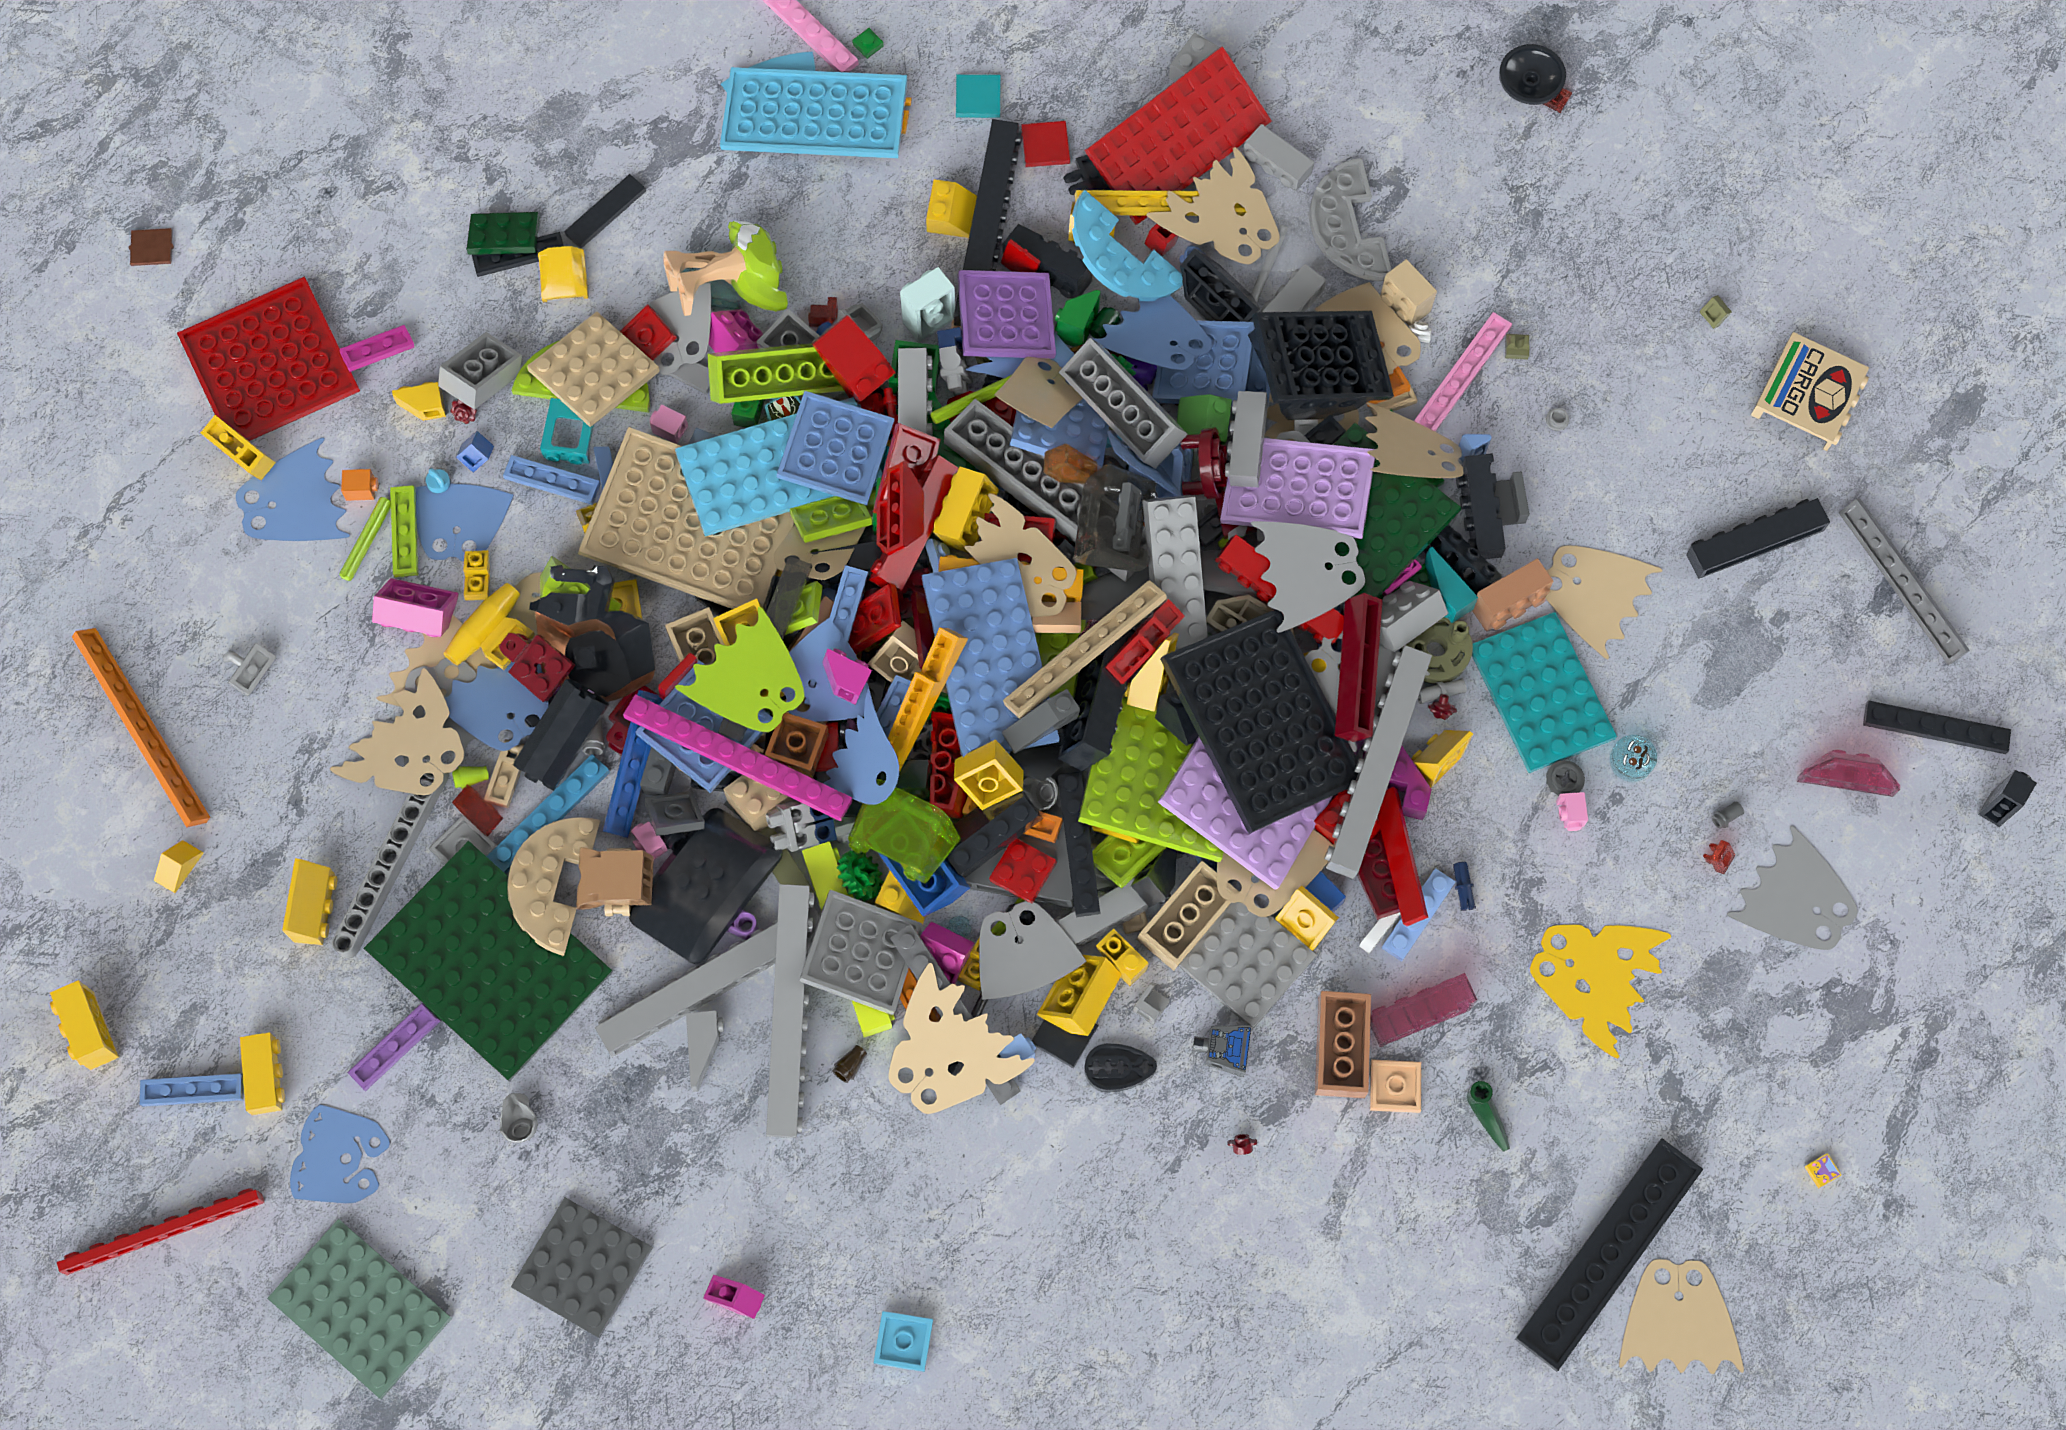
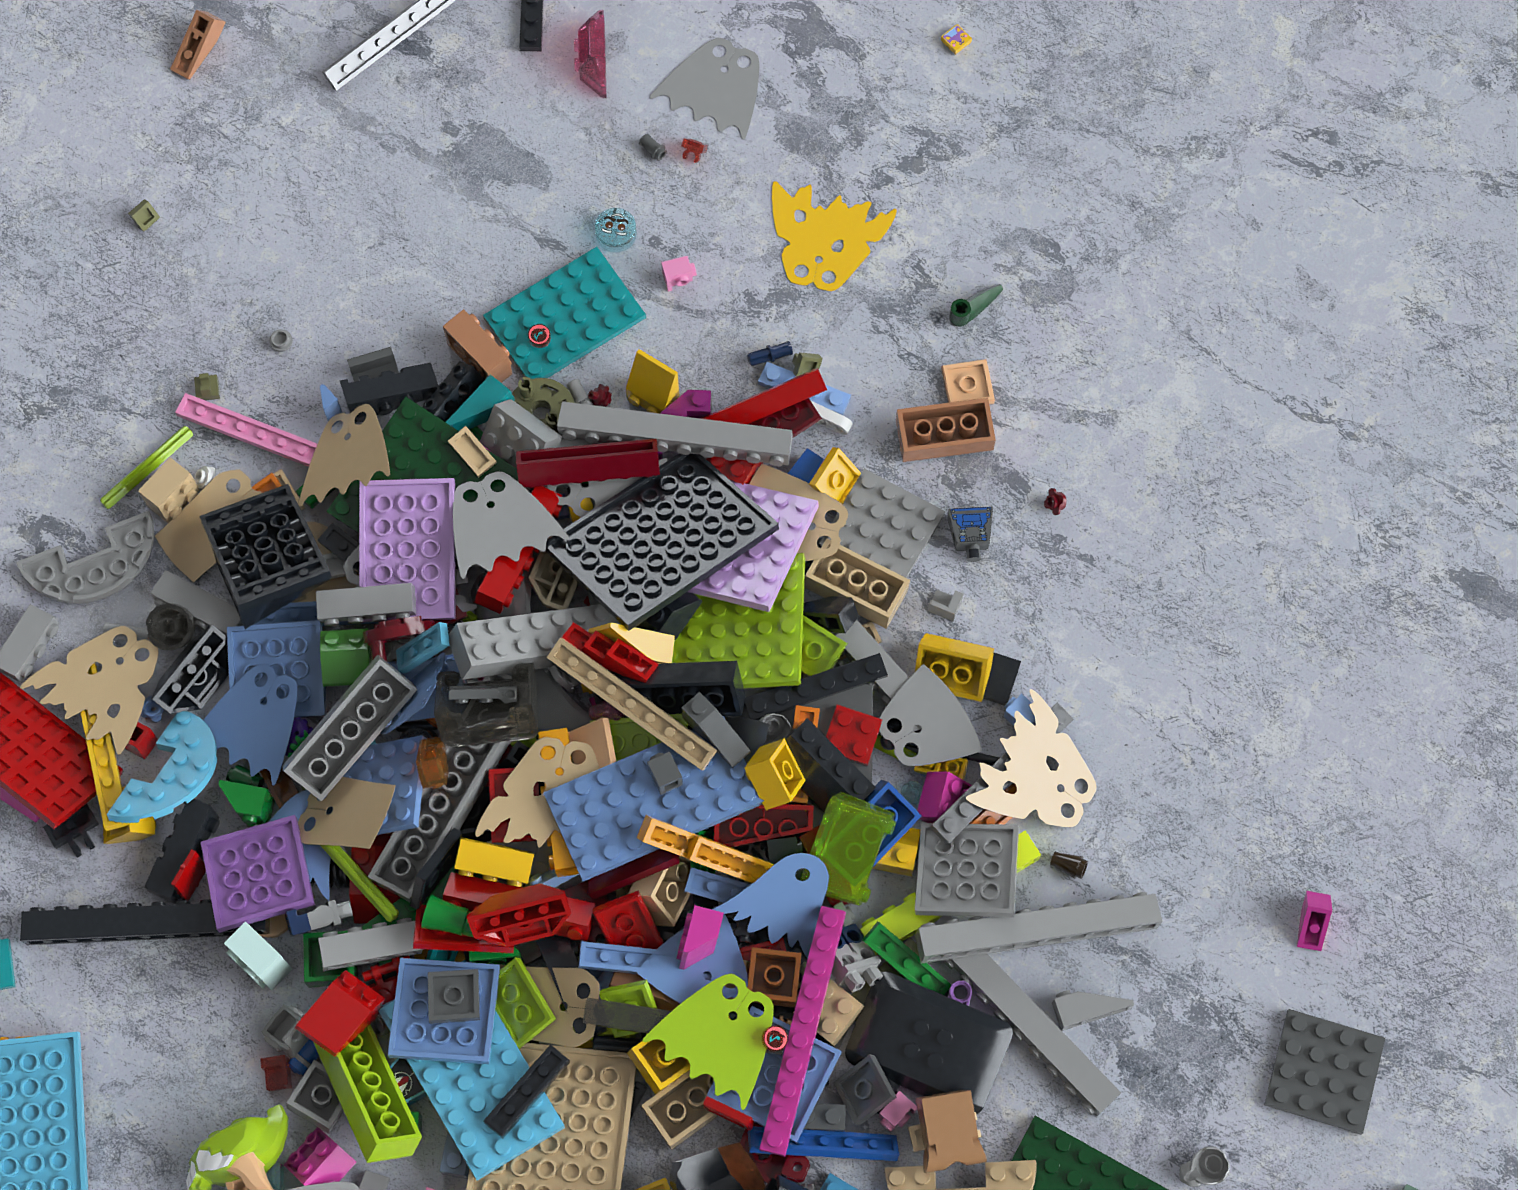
camera: 100 degrees left, 0 degrees up
(732, 725) = (774, 1038): none -> clear red tile
(742, 504) = (526, 1091): none -> black tile
(789, 872) = (904, 959): none -> green plate
(844, 453) = (453, 996): none -> dark grey plate
(860, 875) = (888, 891): green gear -> none
(903, 1341) = (1310, 759): medium azure plate -> none
(919, 451) = (446, 917): none -> green plant
(950, 209) = (133, 965): yellow slope -> none
(966, 453) = (435, 869): none -> black tile
(1007, 665) = (664, 772): none -> dark grey brick
(1045, 144) = (38, 883): red tile -> none
(1117, 1053) = (1024, 622): black piece -> none
(1123, 957) = (910, 633): yellow slope -> none
(1186, 475) = (422, 647): none -> medium azure plate
(1264, 274) = (170, 626): none -> clear smoke cylinder
(1390, 560) = (472, 451): none -> tan tile
(1422, 1010) = (895, 366): clear pink wedge -> none
(1441, 282) = (146, 467): none -> lime axle
(1443, 919) = (805, 362): none -> olive tile
(1519, 658) = (539, 335): none -> clear red tile
(1558, 770) = (640, 277): dark grey gear -> none
(1603, 595) = (456, 277): tan piece -> none
(1609, 1254) = (1072, 191): black plate -> none
(1681, 1329) = (1118, 132): tan piece -> none
(1758, 537) = (376, 152): black brick -> none
(1812, 388) = (214, 124): tan panel -> none
(1911, 387) = (197, 43): none -> nougat slope

